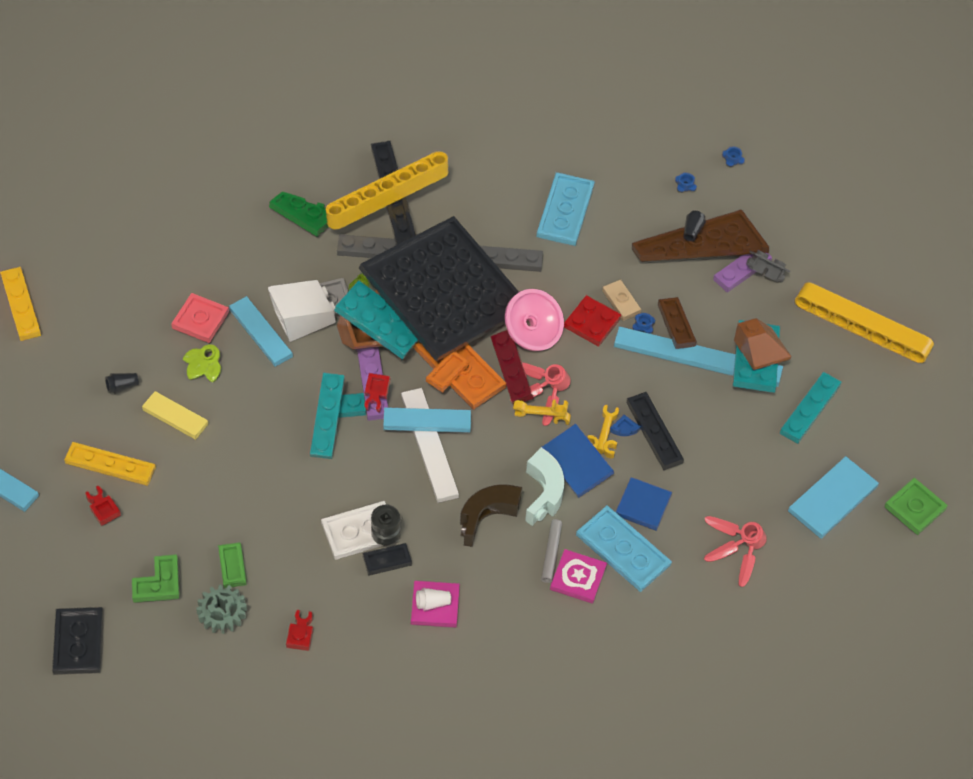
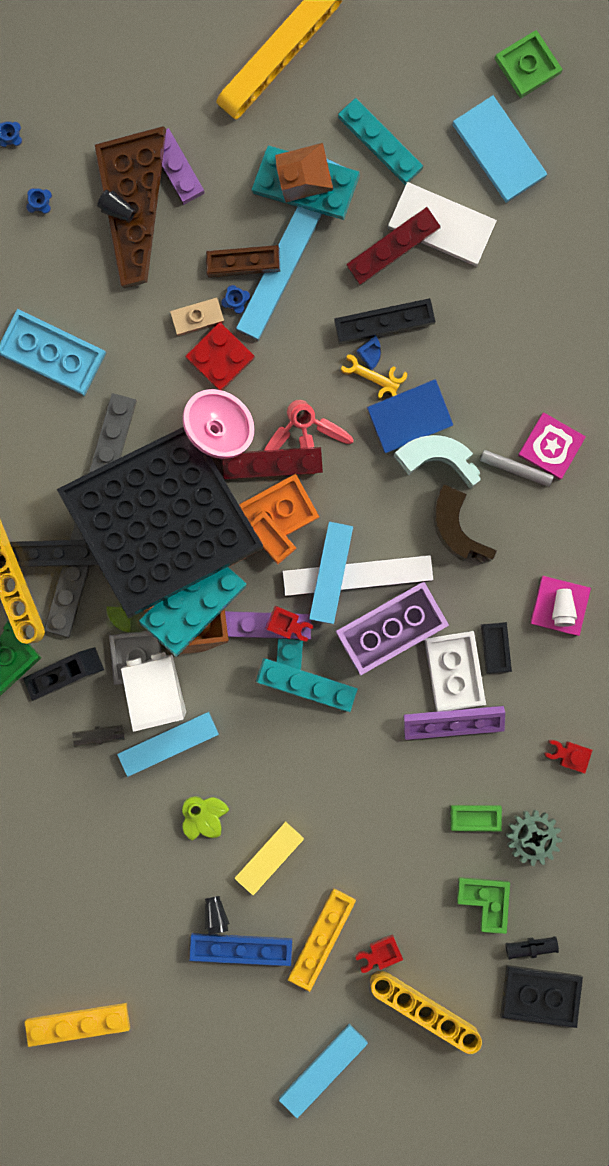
camera: 80 degrees left, 30 degrees up
(55, 556) = (434, 1020): none -> yellow beam
(95, 404) = (241, 949): none -> blue plate
(121, 624) = (532, 947): none -> black pin
(200, 318) = (139, 813): coral plate -> none
(259, 281) = (98, 735): none -> clear smoke pin
(307, 251) = (63, 673): none -> black slope
(314, 532) = (454, 722): none -> medium lavender plate
(385, 524) = (469, 644): pearl dark grey wheel -> none
(388, 468) = (392, 628): none -> lavender brick
(555, 410) = (339, 441): yellow bar -> none
(623, 548) = (524, 390): medium azure tile -> none
(643, 503) = (473, 355): blue tile -> none
(721, 426) = (393, 246): none -> dark red plate
(751, 534) = (548, 250): coral plant -> none
(752, 463) = (462, 229): none -> white tile
(775, 269) = (188, 130): dark grey hinge -> none

